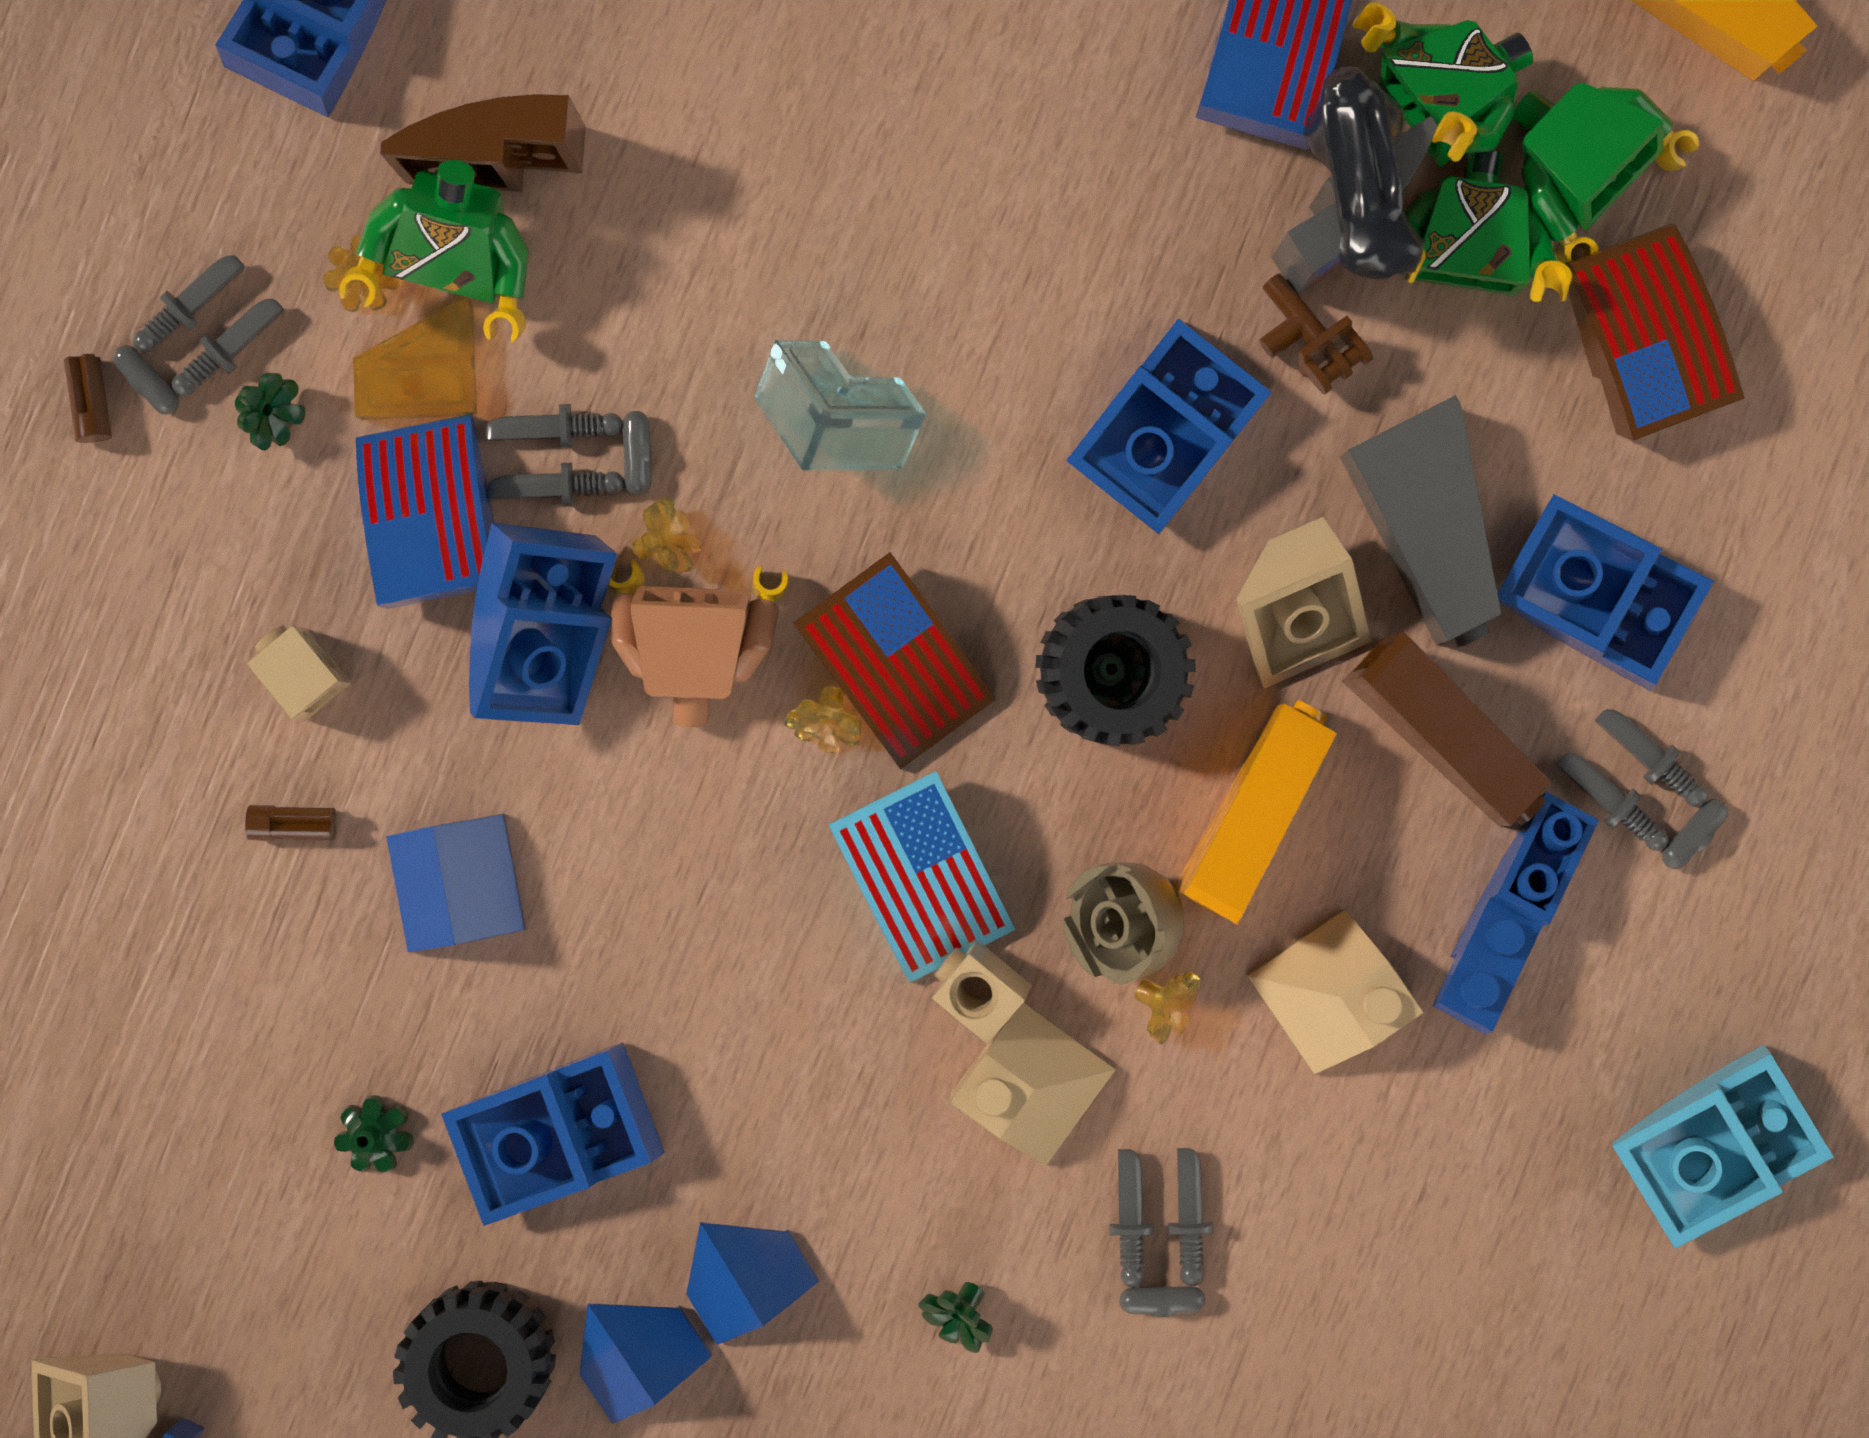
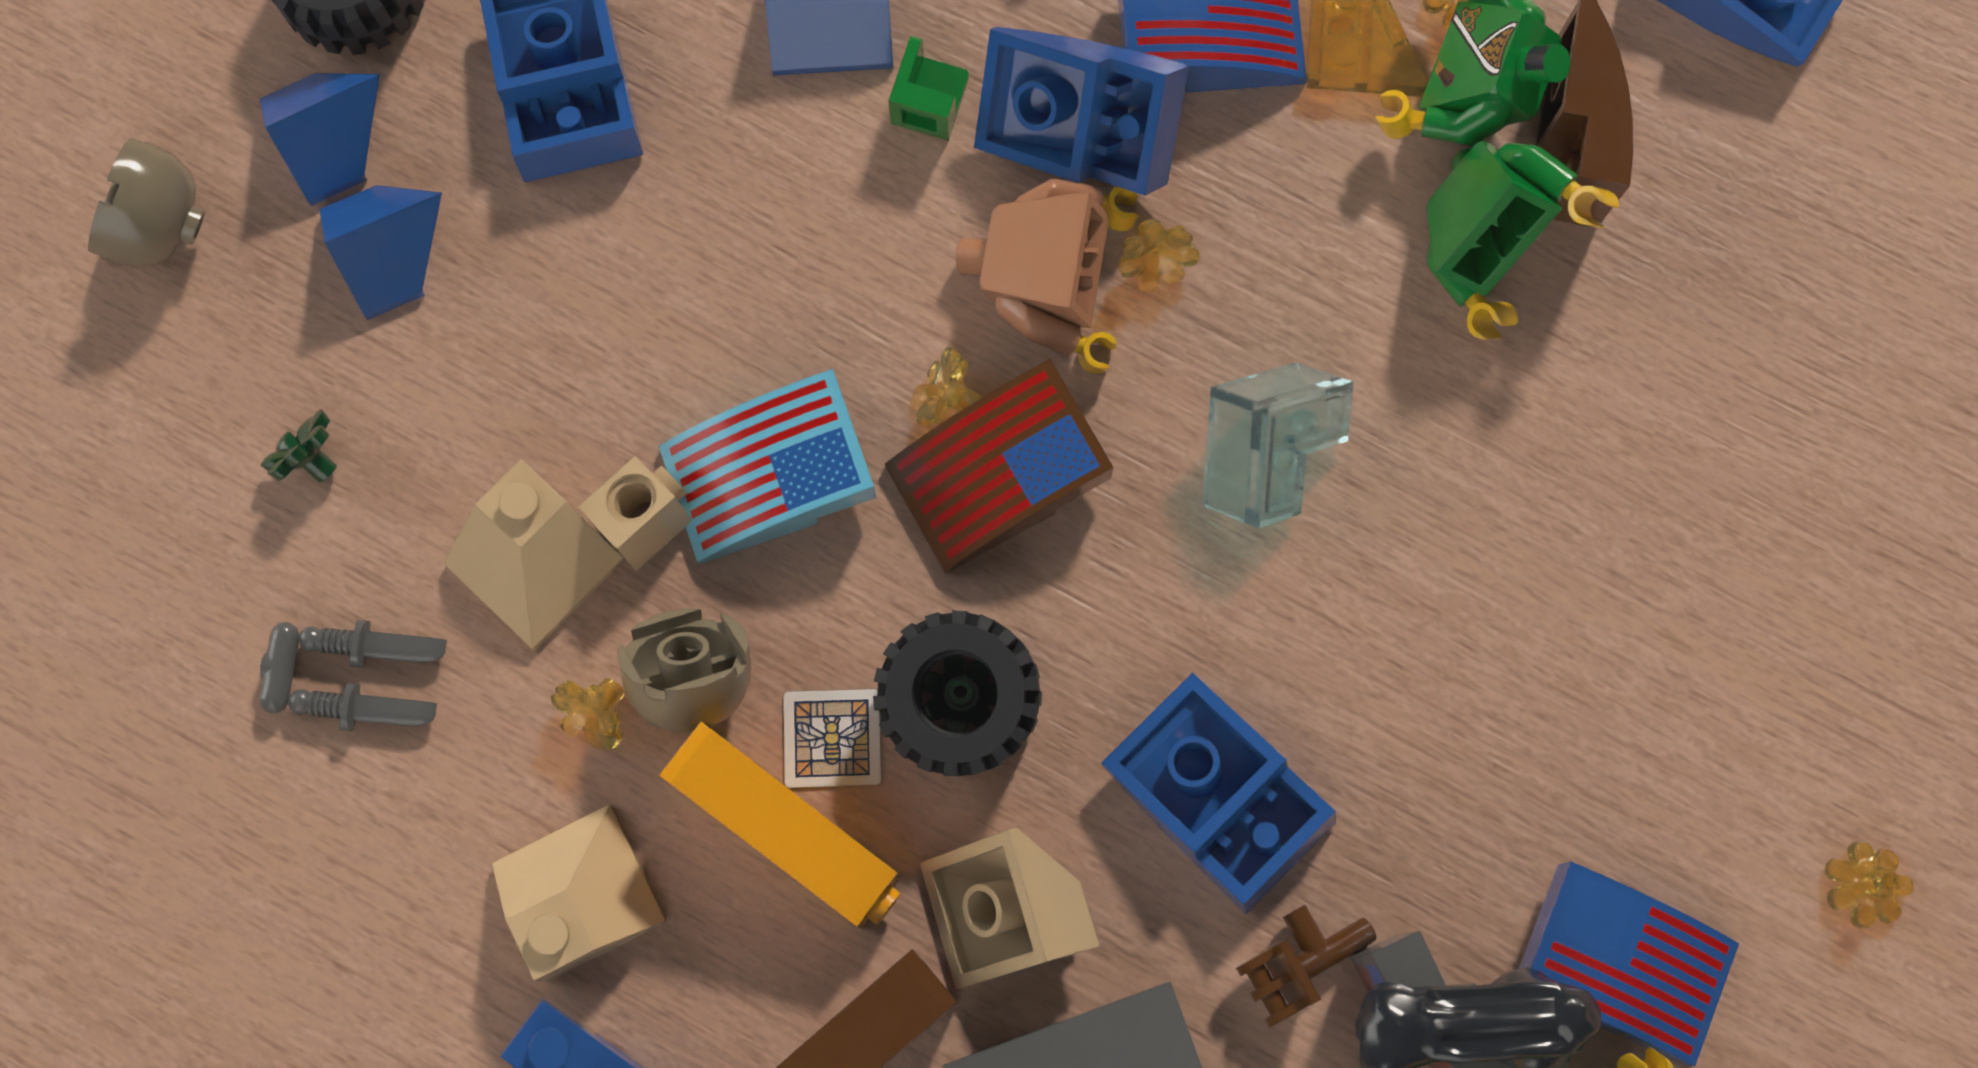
camera: 95 degrees right, 10 degrees down
(530, 775) = (926, 93): none -> green panel
(565, 484) = (1284, 169): dark grey piece -> none
(599, 222) = (1491, 215): none -> green torso
(1160, 783) = (831, 738): none -> sticker

